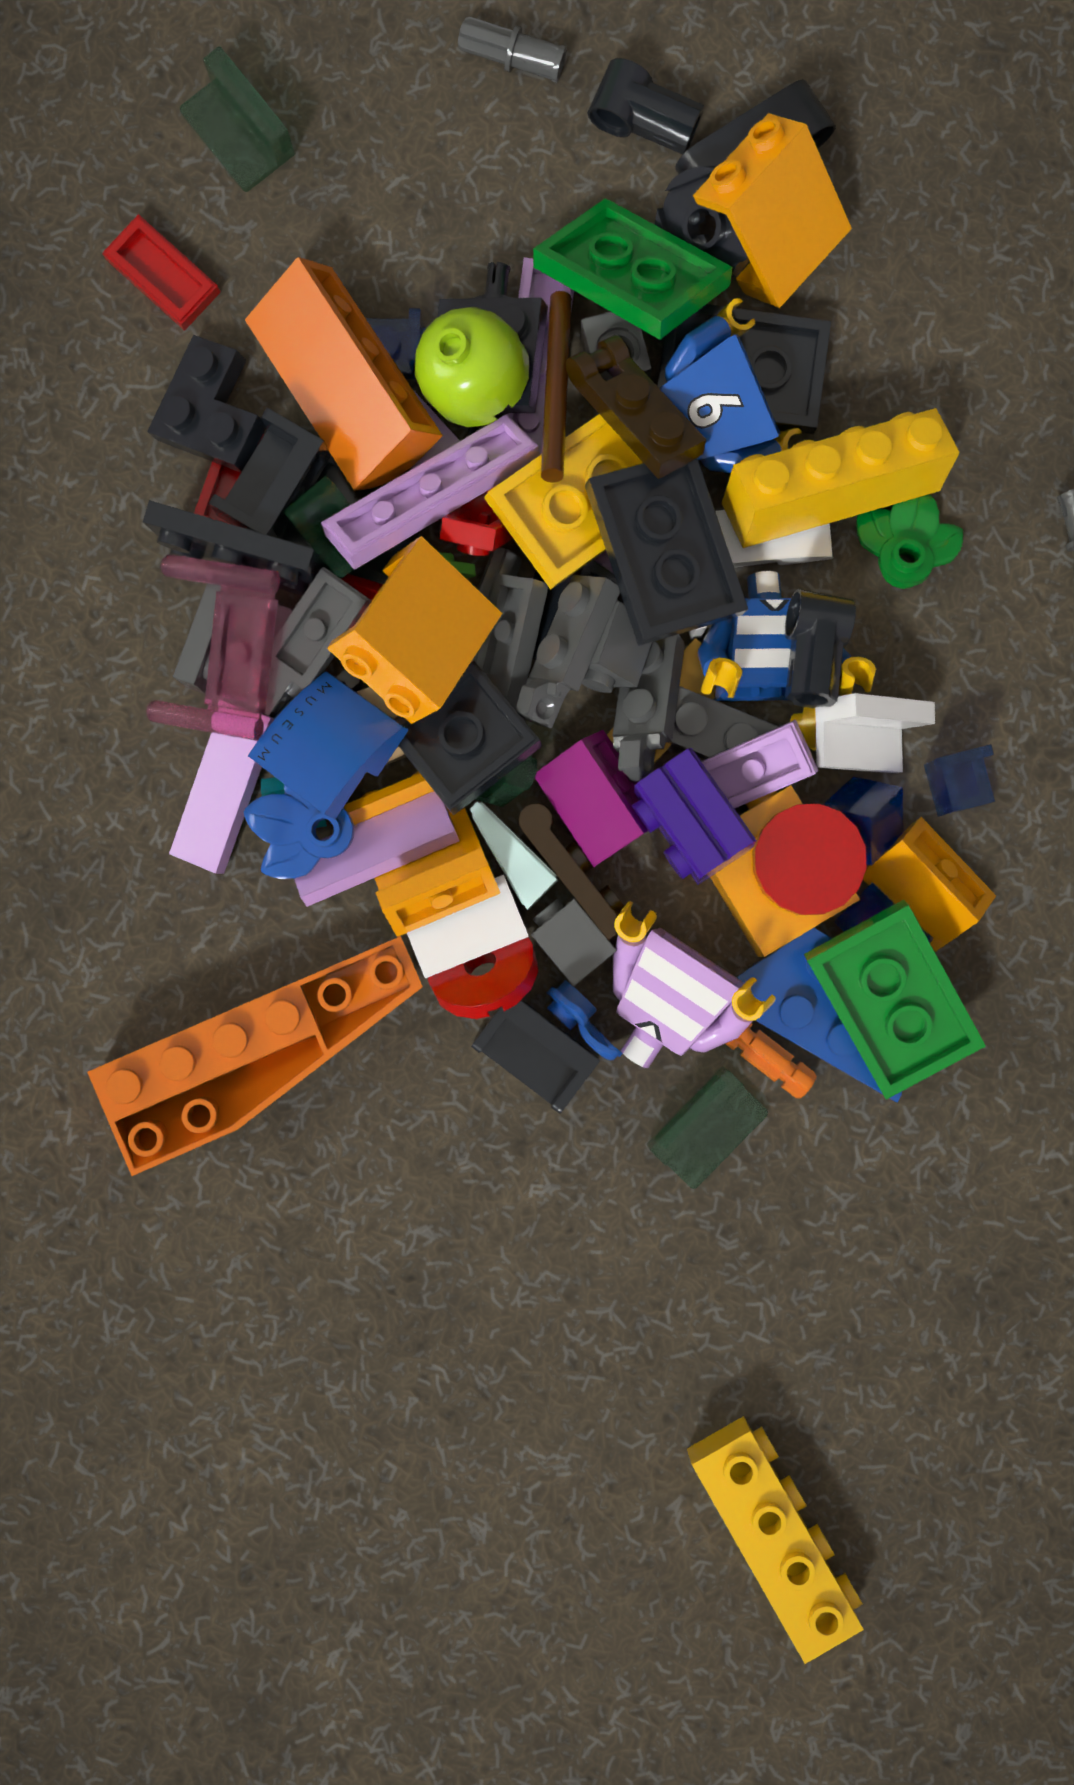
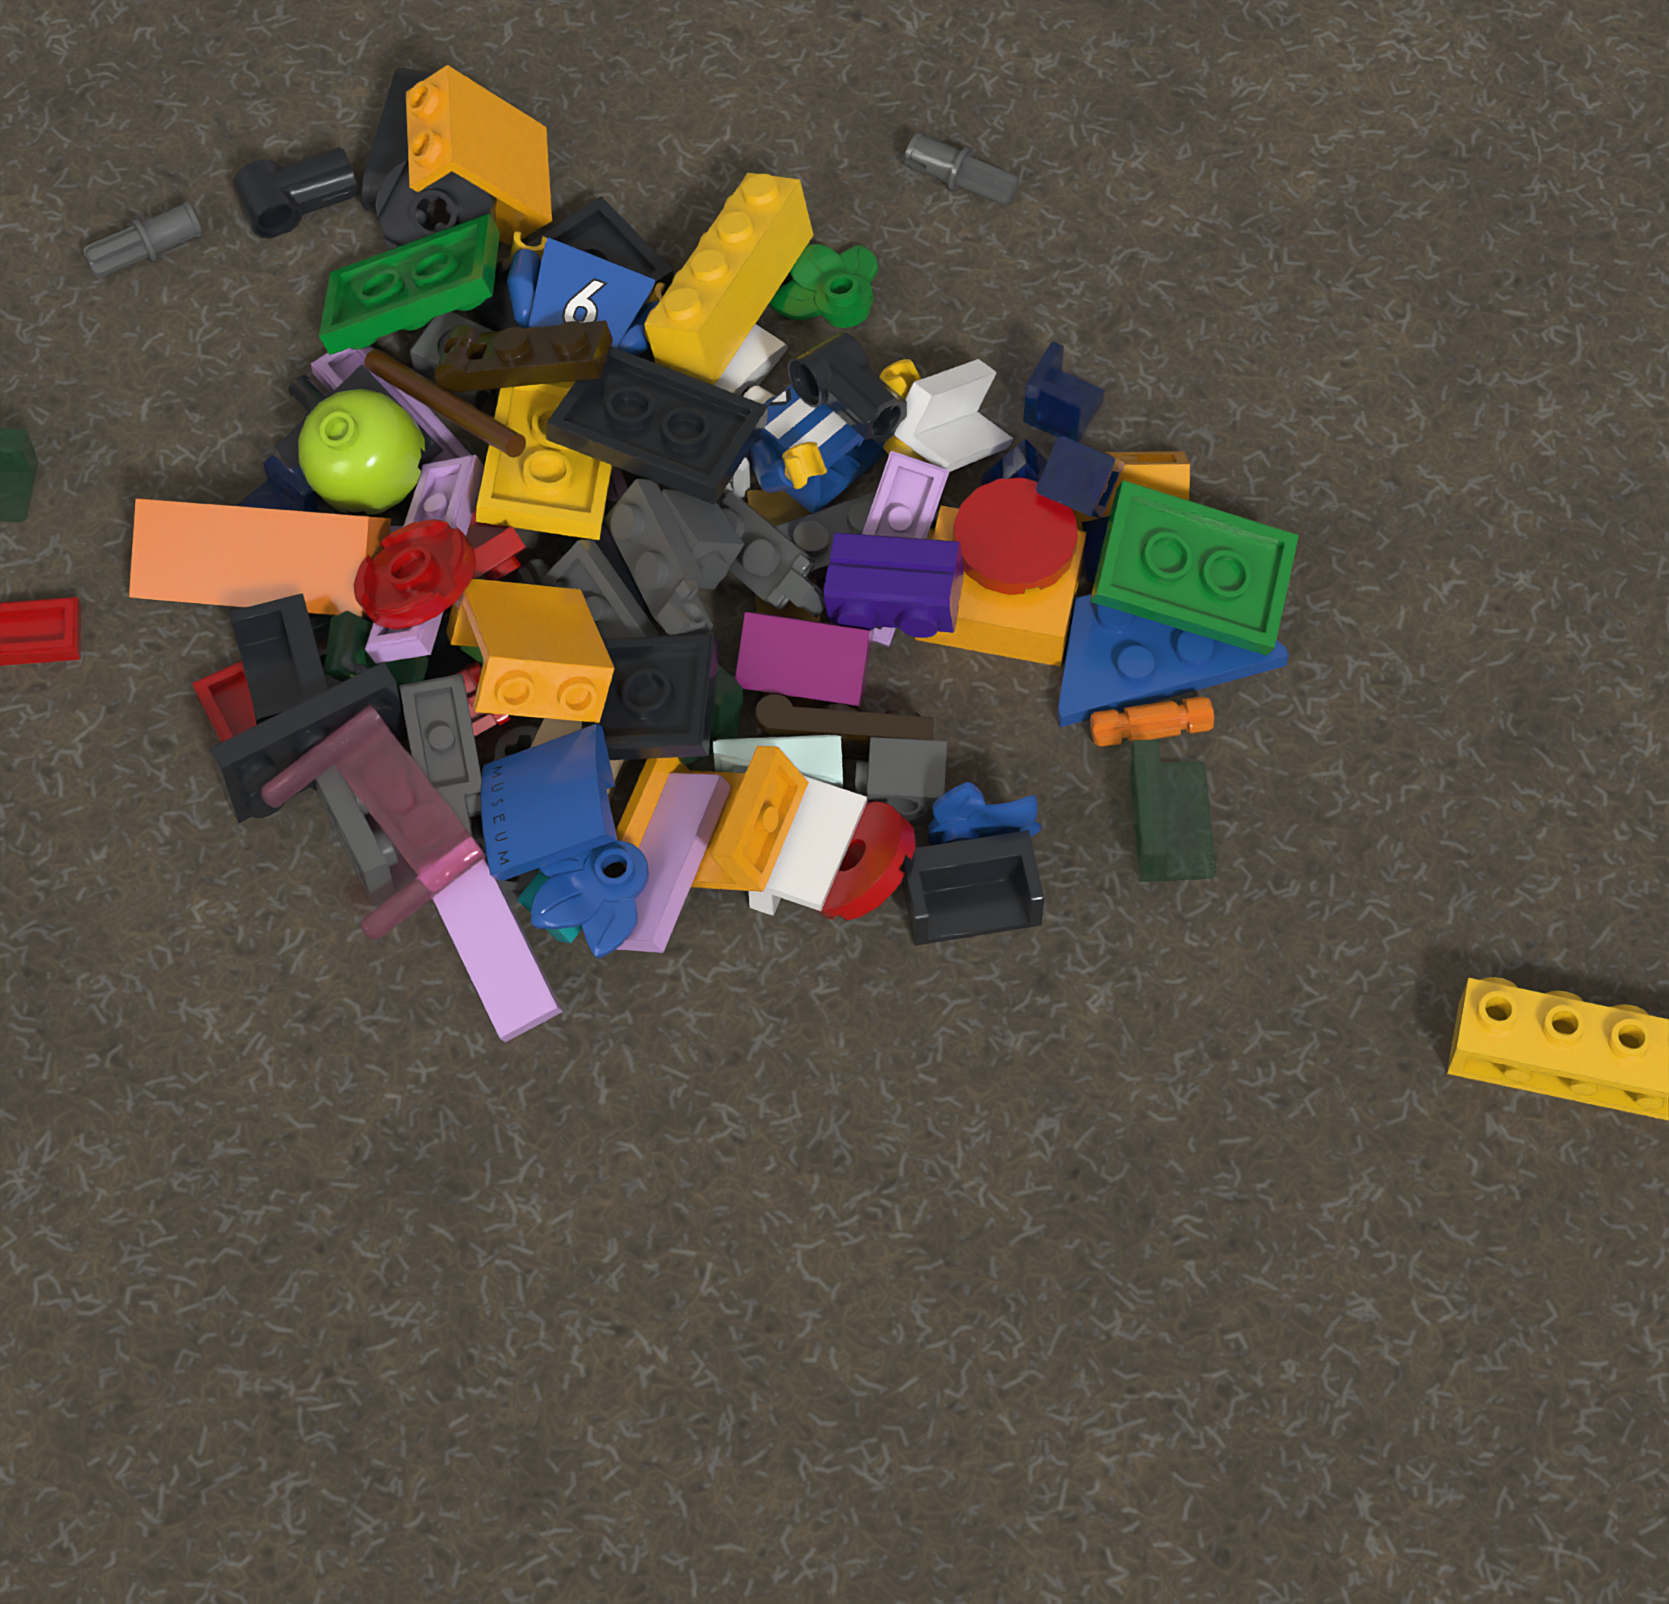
camera: 45 degrees left, 25 degrees down
(196, 411) = (164, 699): black plate -> none
(245, 1058) = (739, 1120): orange wedge -> none
(398, 503) = (415, 574): none -> red tile
(675, 993) = (1029, 730): torso -> none
(888, 867) = (1080, 477): none -> clear blue bracket

